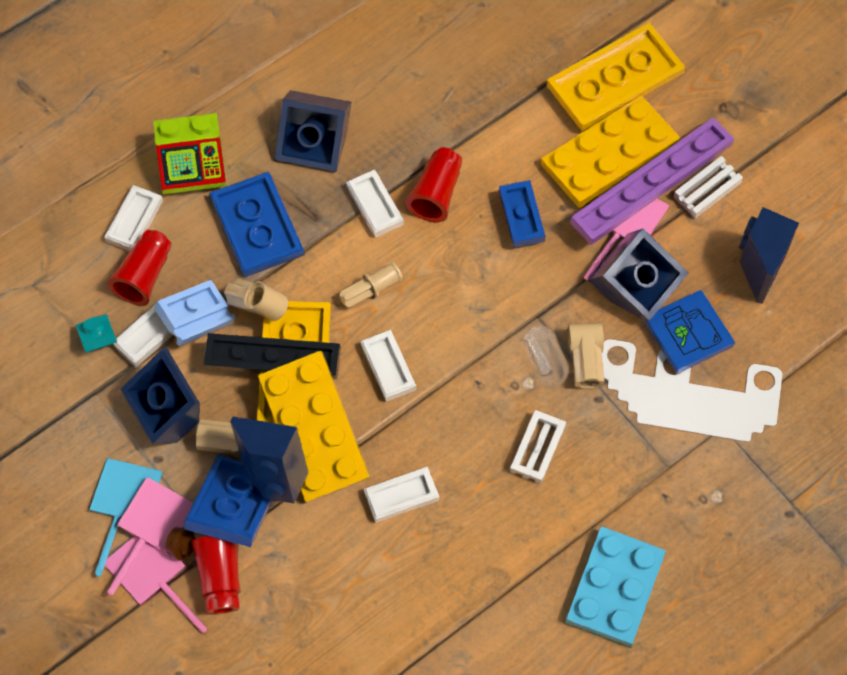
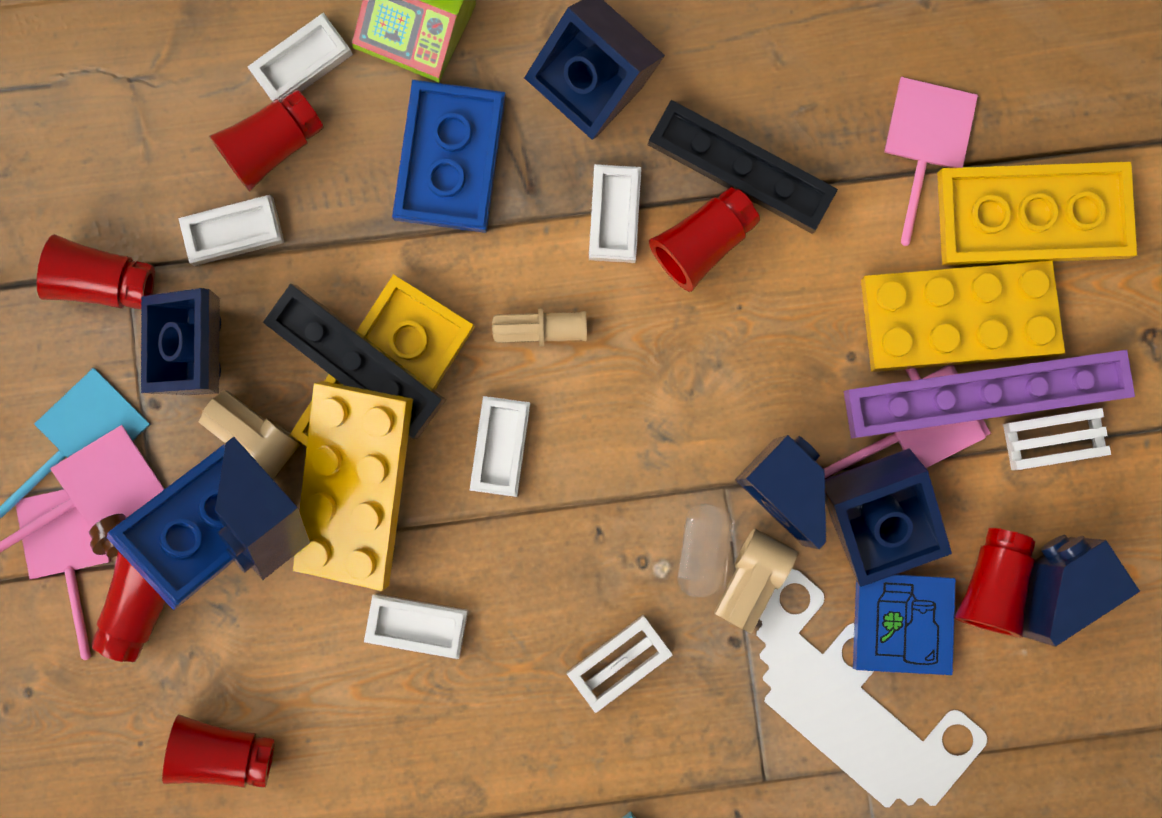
camera: 30 degrees right, 20 degrees up
(81, 398) = (91, 275): none -> red plant
(96, 333) = (163, 195): teal plate -> none
(194, 312) = (296, 240): light blue plate -> none
(256, 299) = (378, 271): tan piece -> none
(325, 632) = (216, 755): none -> red plant
(427, 137) = (742, 166): none -> black plate
(521, 214) = (791, 339): blue plate -> none
(527, 65) = (930, 127): none -> bright pink piece
(573, 287) = (790, 488): none -> dark blue slope
(728, 279) = (999, 584): none -> red plant

